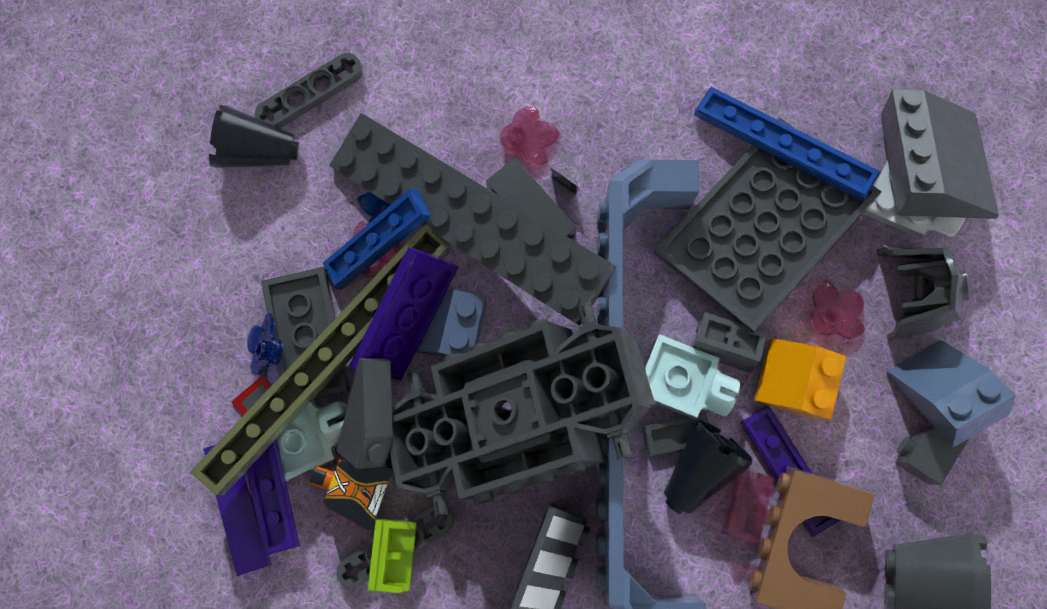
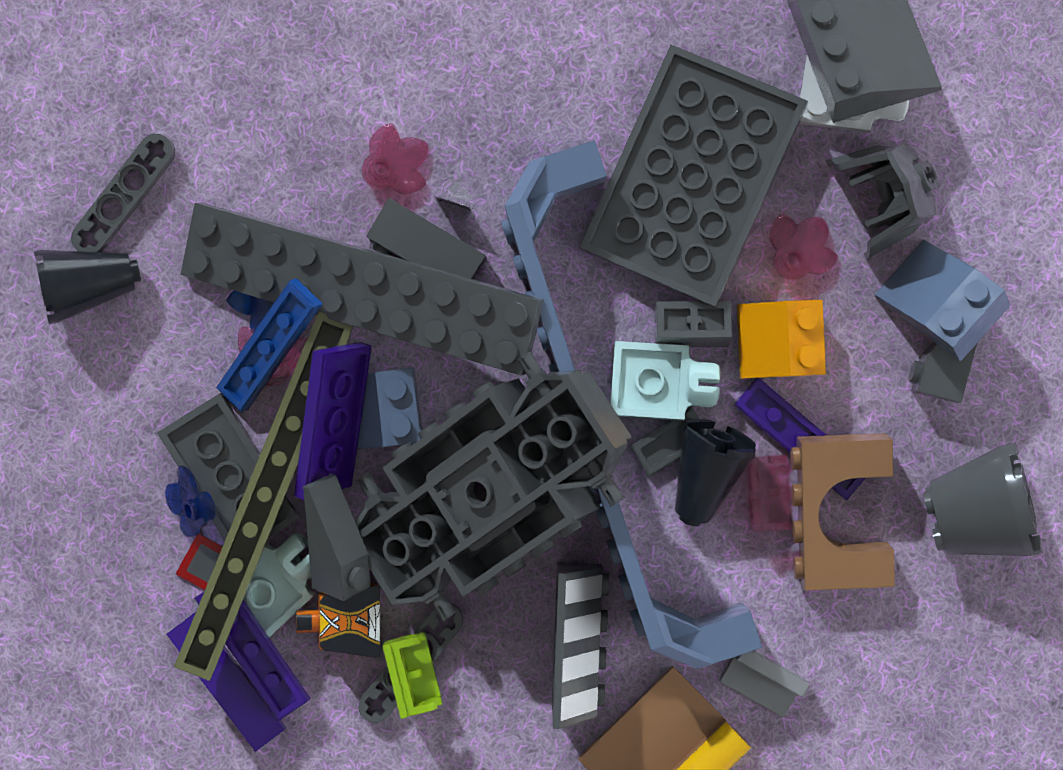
camera: 25 degrees left, 10 degrees up
(787, 144) = (686, 76): blue tile -> none

